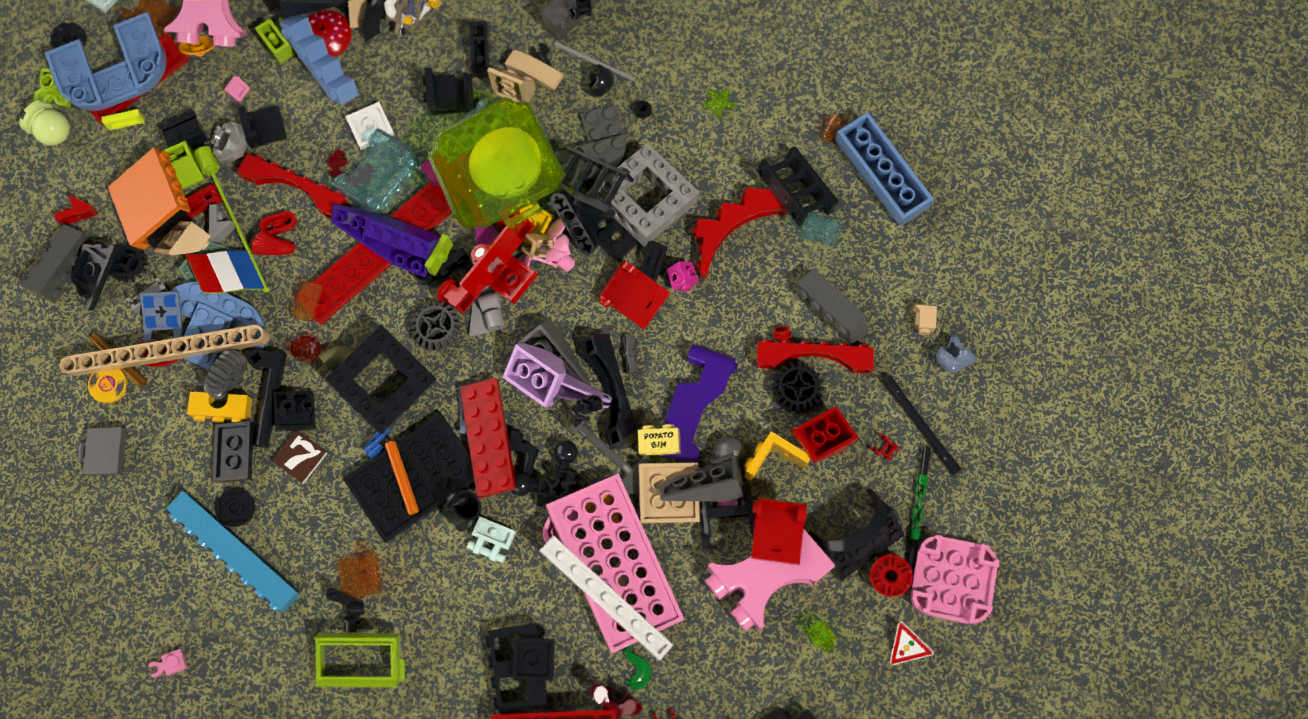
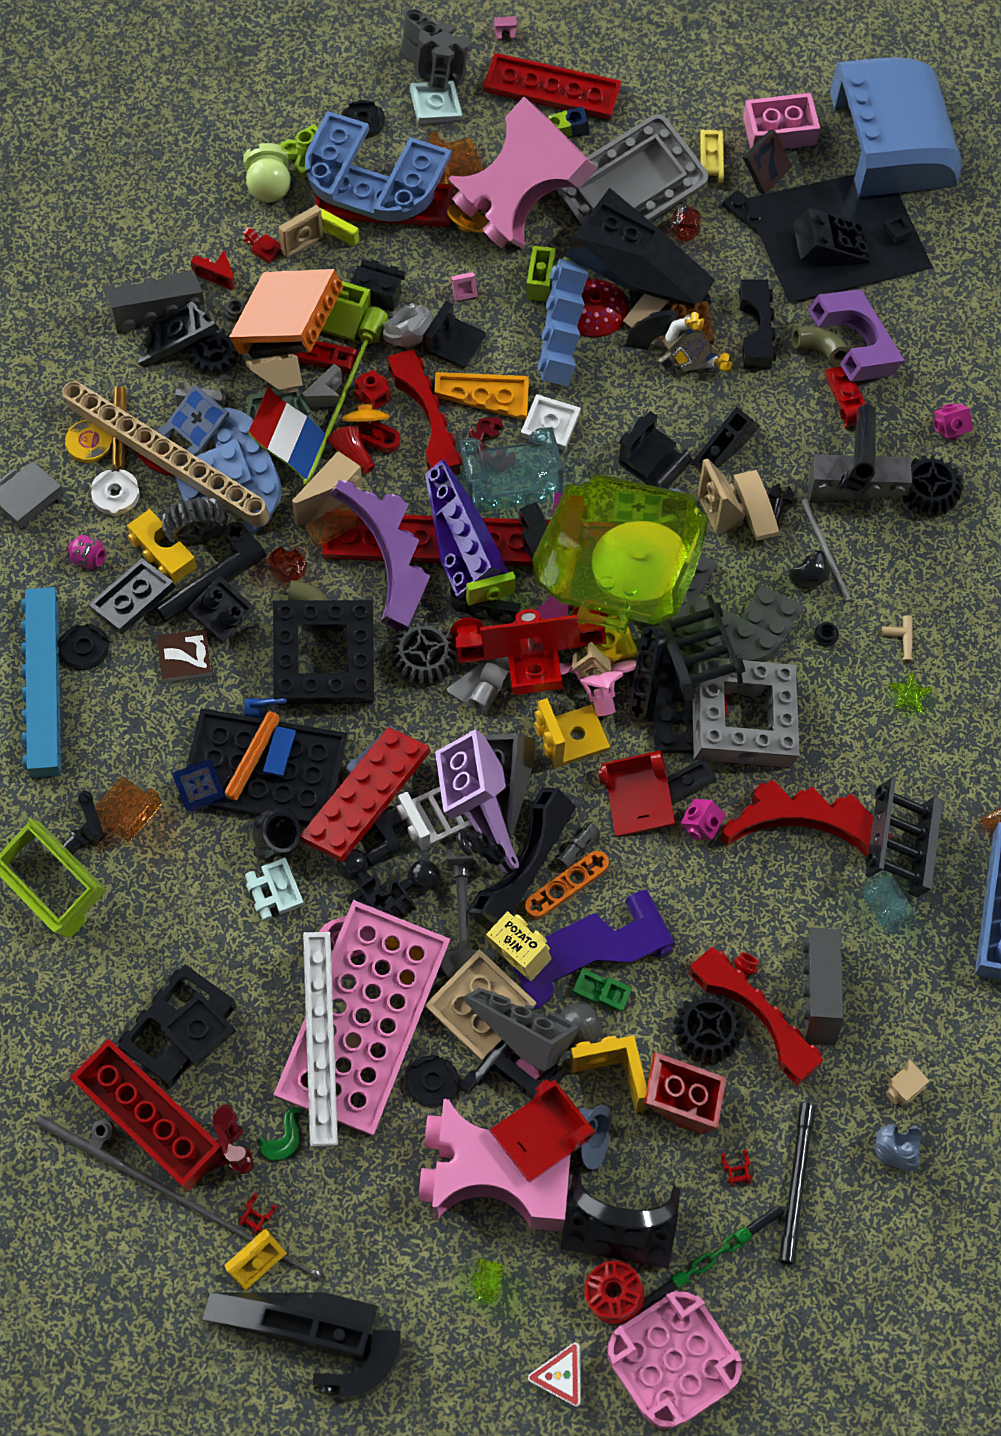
camera: 40 degrees right, 10 degrees down
(90, 171) = (264, 247): none -> red plate
(105, 142) = (301, 231): none -> tan tile
(109, 221) = (232, 304): none -> dark grey plate
(149, 393) = (115, 480): none -> white plate
(178, 451) = (87, 552): none -> dark pink head
(247, 200) = (372, 389): none -> red brick
(259, 218) = (365, 413): none -> light orange dish
(285, 282) = (315, 496): none -> tan slope
(313, 141) = (488, 392): none -> light orange wing
(361, 279) = (397, 548): none -> medium lavender arch
(388, 523) = (199, 785): none -> piece
(414, 460) = (279, 751): none -> blue piece
(431, 199) = (534, 527): none -> black slope
(537, 427) = (418, 824): none -> white plate
(554, 302) = (557, 733): none -> yellow bracket
(646, 382) = (563, 881): none -> orange beam
(683, 69) = (906, 633): none -> tan piece
(689, 562) = (425, 1085): none -> black tile
(722, 421) = (602, 991): none -> green slope
(794, 494) = (595, 1149): none -> sand blue piece

